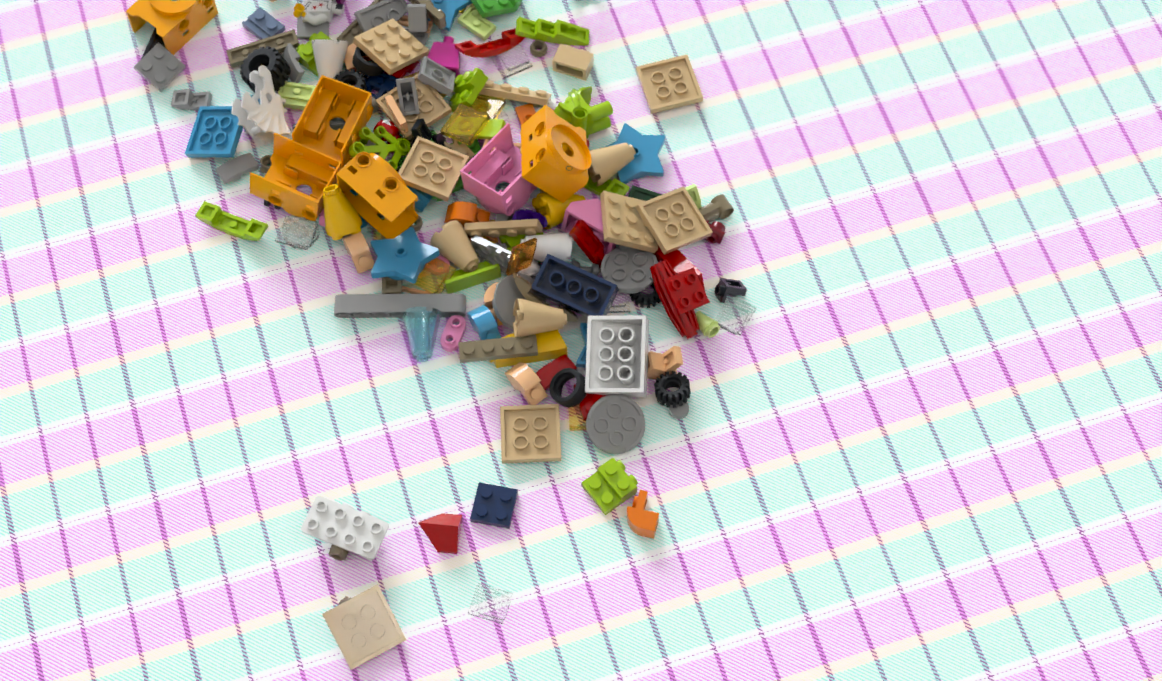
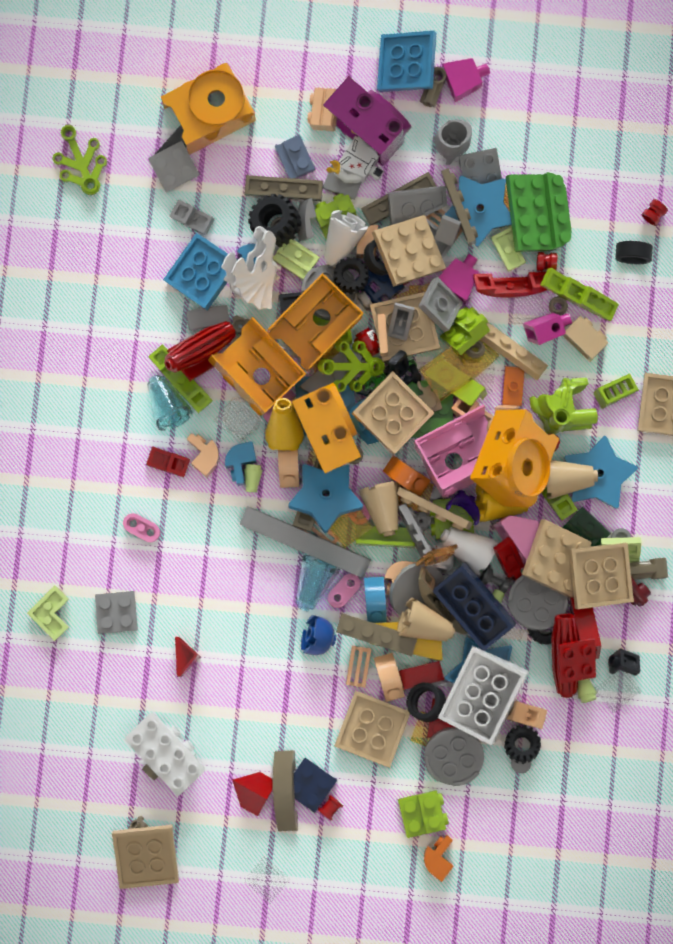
camera: 25 degrees right, 20 degrees up
(75, 96) = (81, 164): none -> lime plant
(183, 458) = (45, 612): none -> yellowish green plate
(229, 245) = (167, 404): none -> clear light blue cone
(233, 189) = (193, 353): none -> red plate
(243, 294) = (167, 462): none -> red slope
(245, 351) = (141, 528): none -> bright pink plate
(249, 433) = (116, 612): none -> light grey plate
(281, 272) = (208, 456): none -> light nougat brick
(310, 263) = (237, 457): none -> dark azure brick
(330, 273) = (252, 477): none -> yellowish green cone
(330, 438) = (185, 656): none -> red slope
(446, 374) = (318, 637): none -> blue cylinder
(473, 519) = (283, 791): none -> dark tan slope
(483, 100) = (480, 346): none -> dark tan plate
(490, 374) = (361, 650): none -> light nougat tile
(510, 18) = (546, 261): none -> red wheel
(522, 514) = (330, 807): none -> red bush
(535, 63) = (546, 327): none -> dark pink torso
(619, 95) = (604, 395): none -> lime slope

